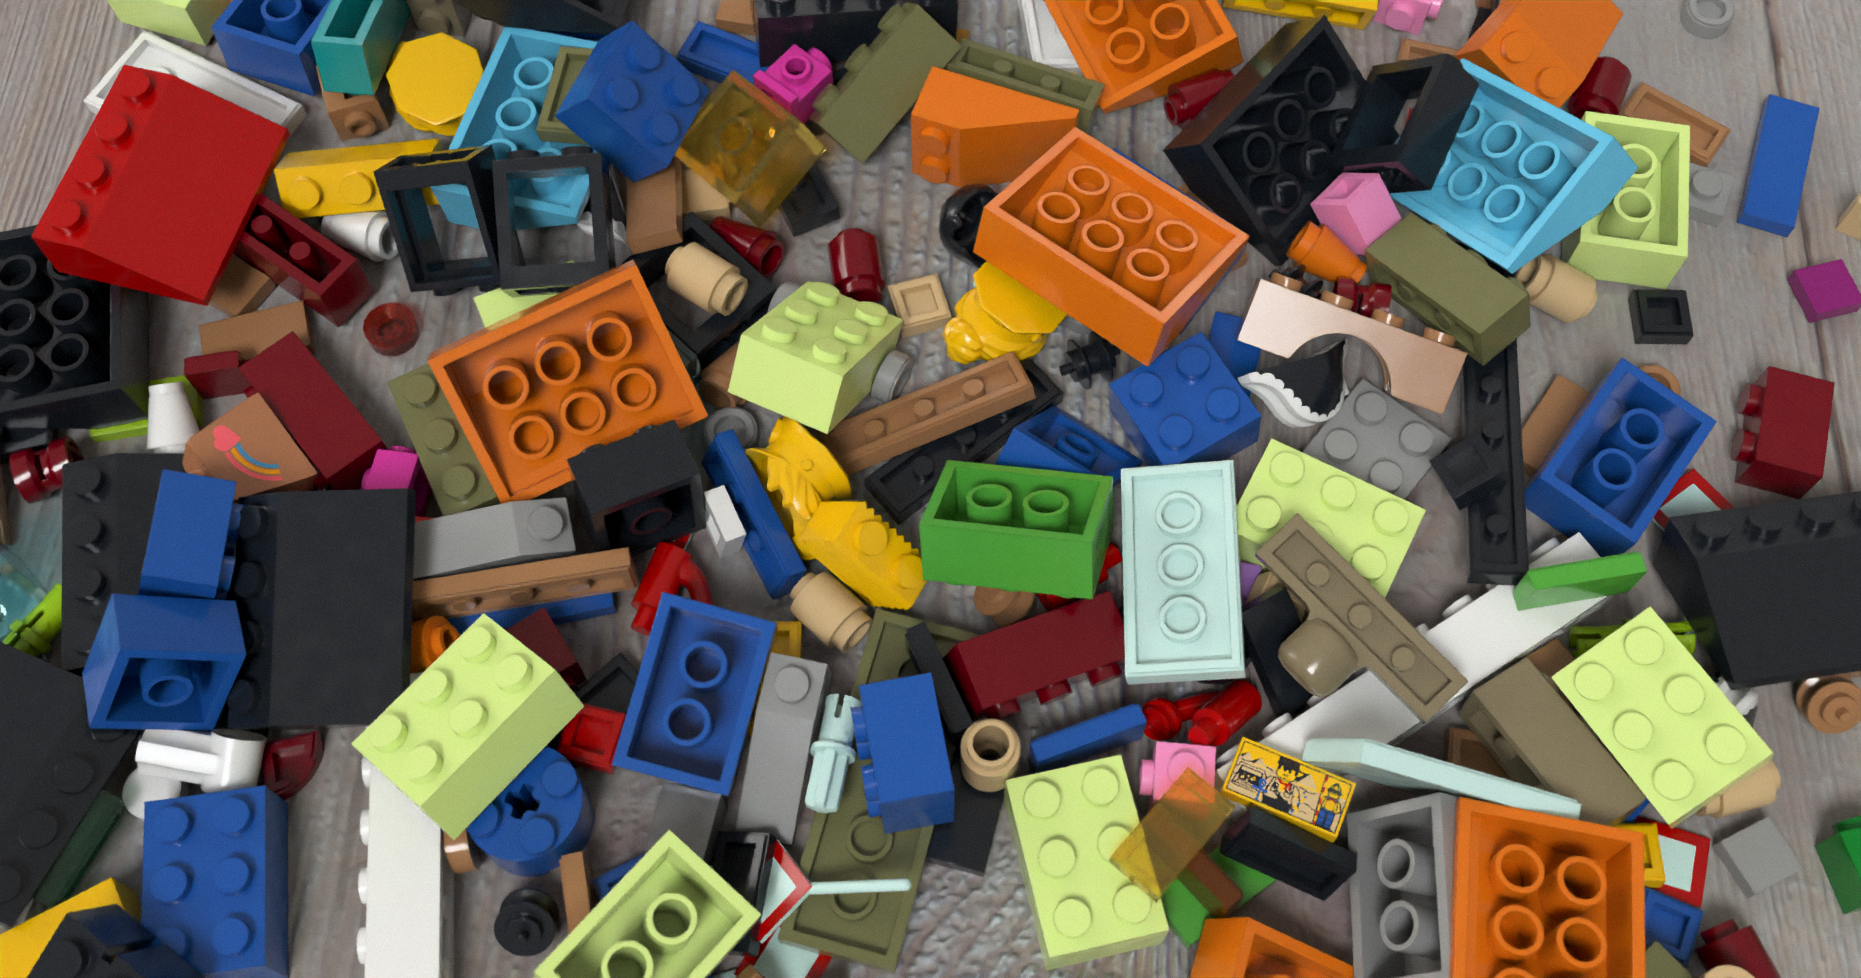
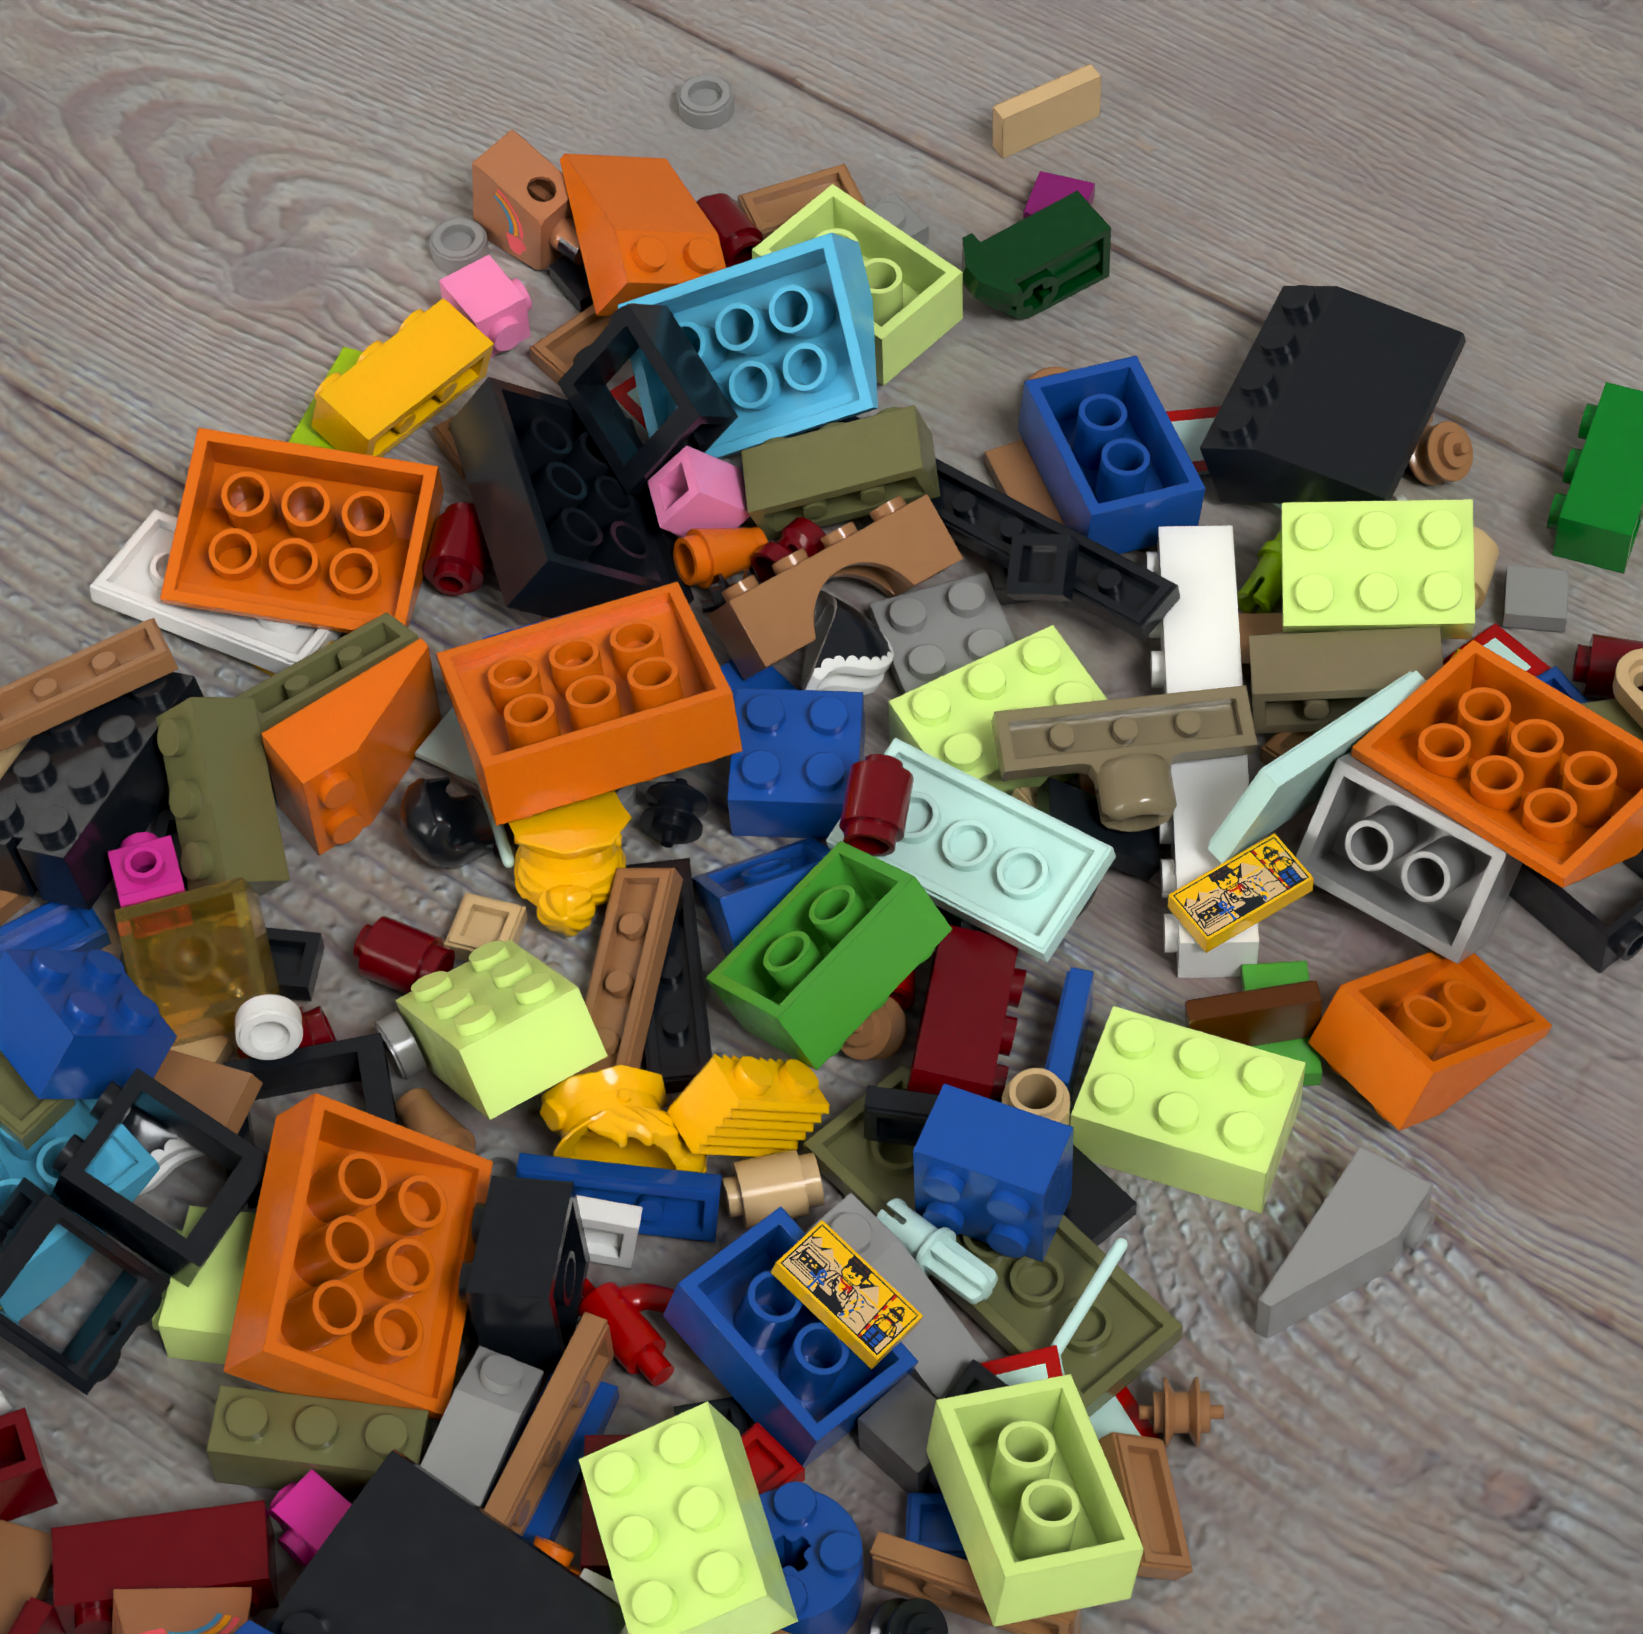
camera: 55 degrees left, 10 degrees down
(391, 329) = (104, 1450): clear red tile -> none
(705, 279) = (337, 1071): tan brick -> none
(722, 217) = (268, 1027): none -> white tile
(734, 712) = (846, 1294): none -> tile
(1158, 481) = (876, 804): none -> dark red brick
(1168, 763) = (1164, 977): bright pink brick -> none
(1172, 834) = (1224, 999): clear yellow tile -> none
(1213, 714) = (1119, 911): red plant -> none
(1288, 853) = (1296, 935): black tile -> none
(1558, 288) = (908, 385): tan brick -> none
(1579, 580) = (1210, 550): bright green tile -> none
(1660, 317) = (986, 340): black tile -> none
(1754, 303) = (1039, 258): none -> dark green piece
(1778, 165) = (907, 154): blue tile -> none
(1783, 432) = (1173, 323): dark red brick -> none

